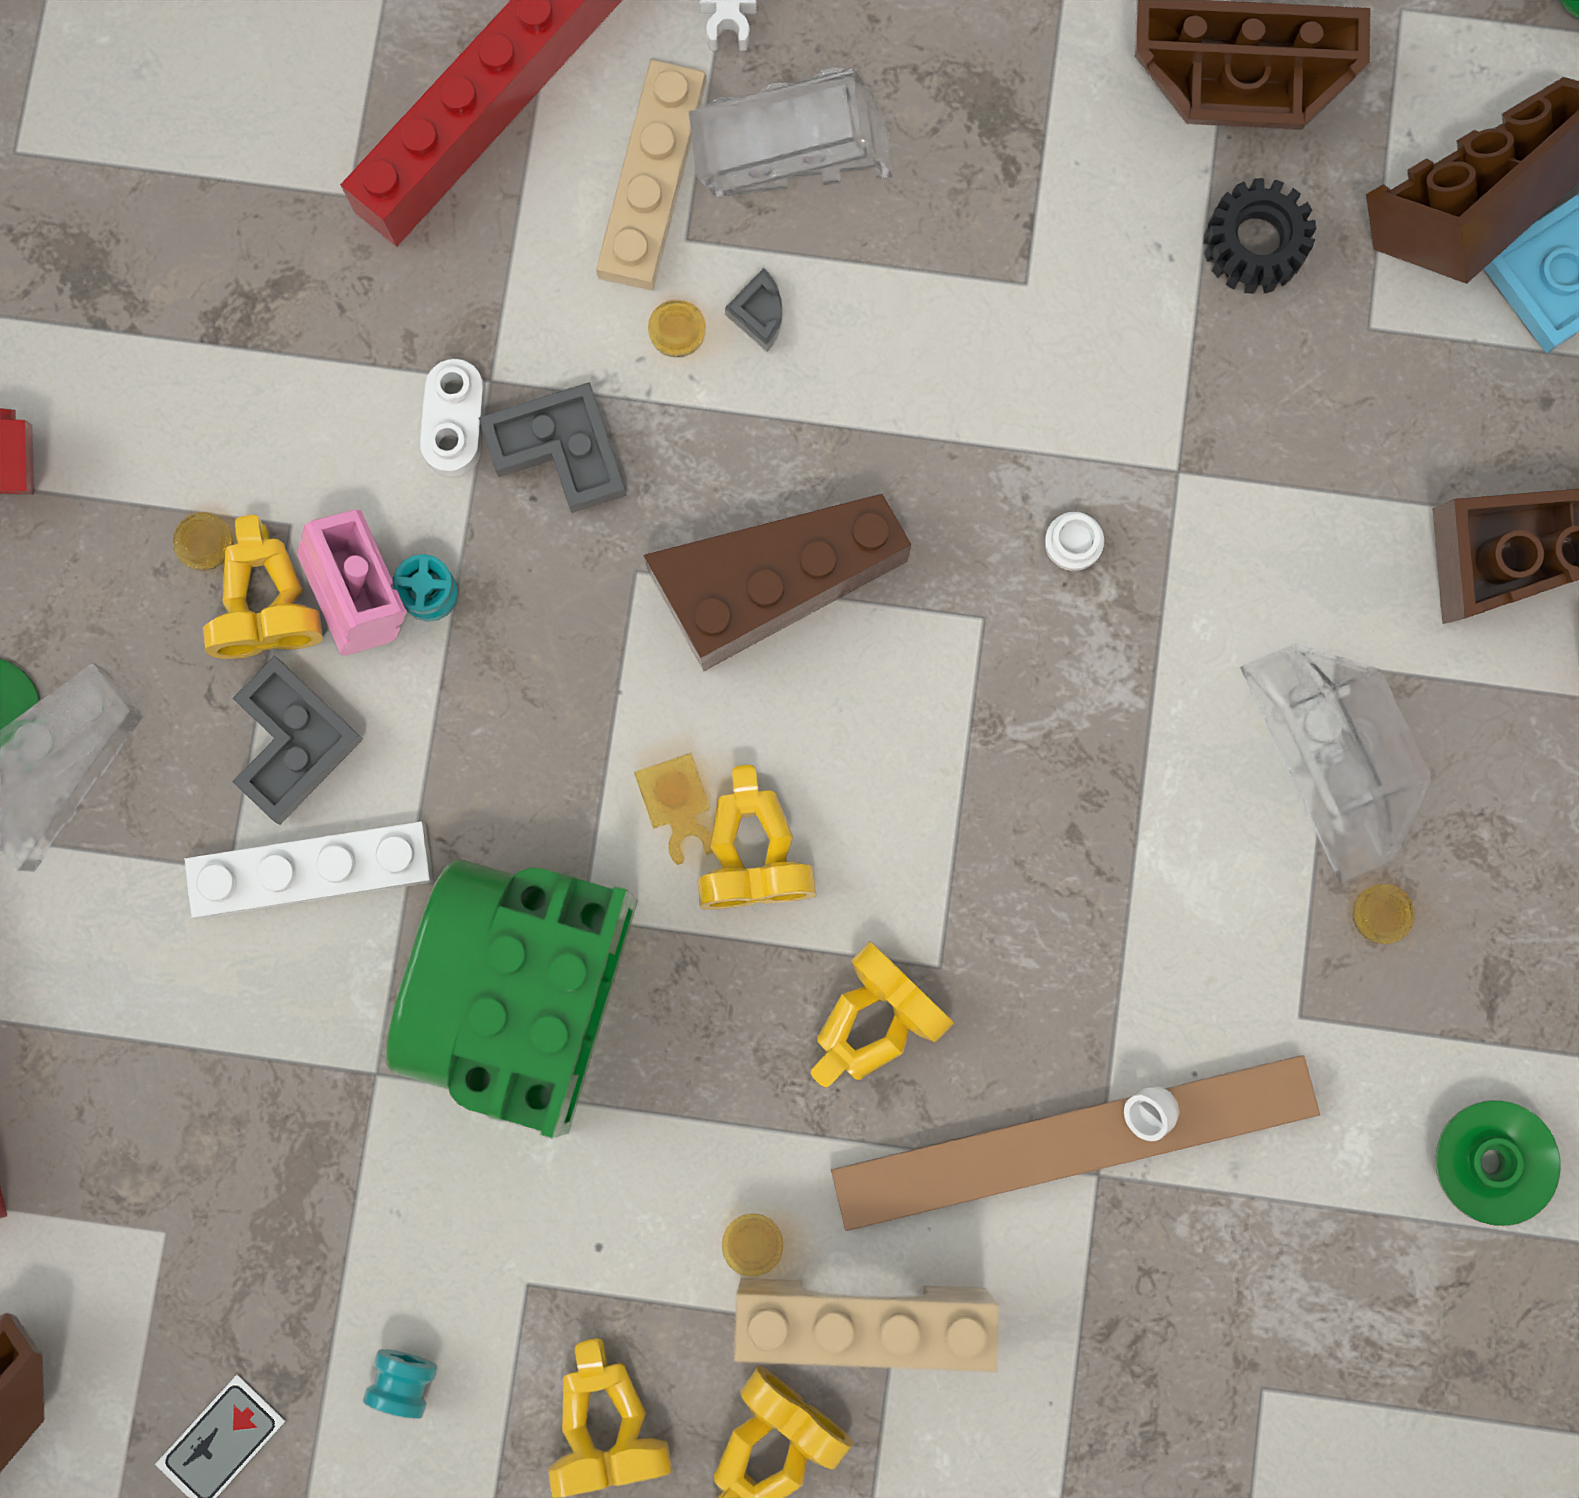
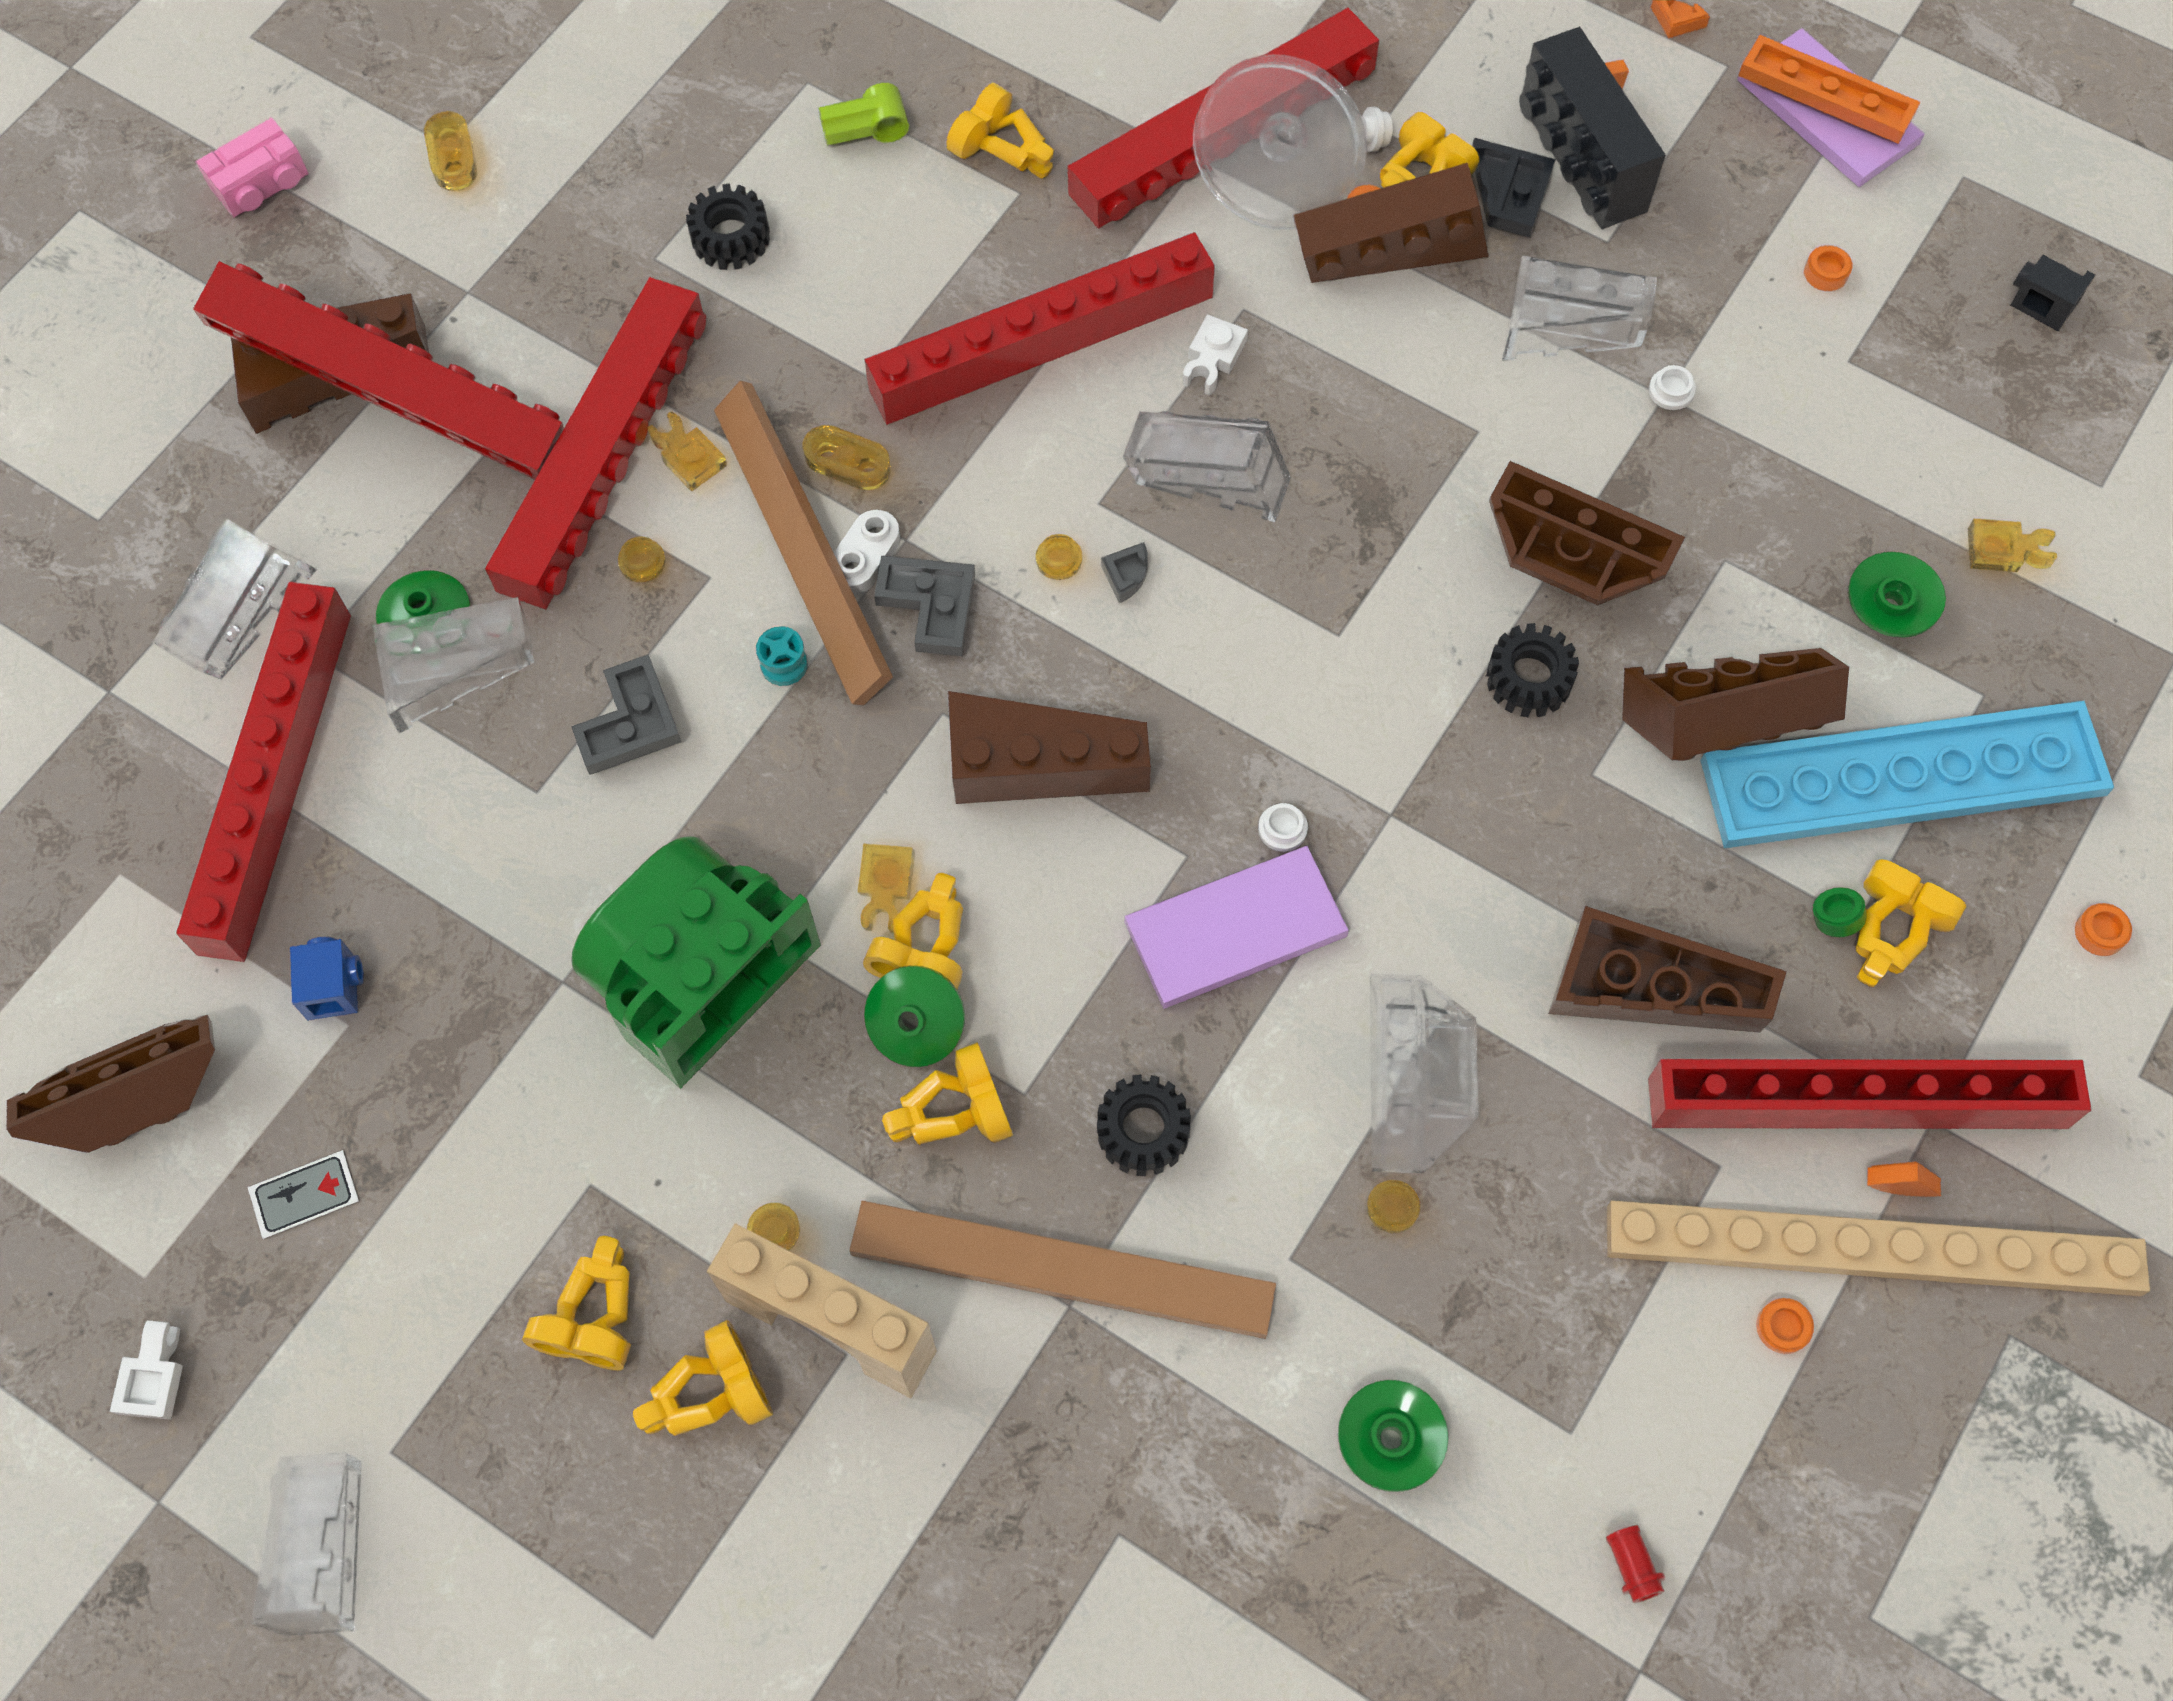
camera: 25 degrees right, 15 degrees down
(67, 50) = (724, 207): none -> black tyre
(76, 418) = (597, 444): none -> red brick
(112, 1199) = (325, 978): none -> blue brick
(187, 386) = (687, 455): none -> clear yellow plate
(278, 626) = (663, 636): yellow piece -> none
(308, 870) = (588, 813): white plate -> none
(350, 582) = (729, 626): bright pink brick -> none
(376, 438) = (803, 544): none -> medium nougat tile
(377, 307) = (850, 457): none -> clear yellow plate
(400, 1384) = (457, 1205): teal wheel -> none
(651, 175) = (1091, 450): tan plate -> none
(781, 921) = (930, 999): none -> green dish
(1076, 677) = (1235, 926): none -> lavender tile
(1123, 940) = (1143, 1095): none -> black tyre
(1151, 1113) = (1129, 1268): white hinge -> none

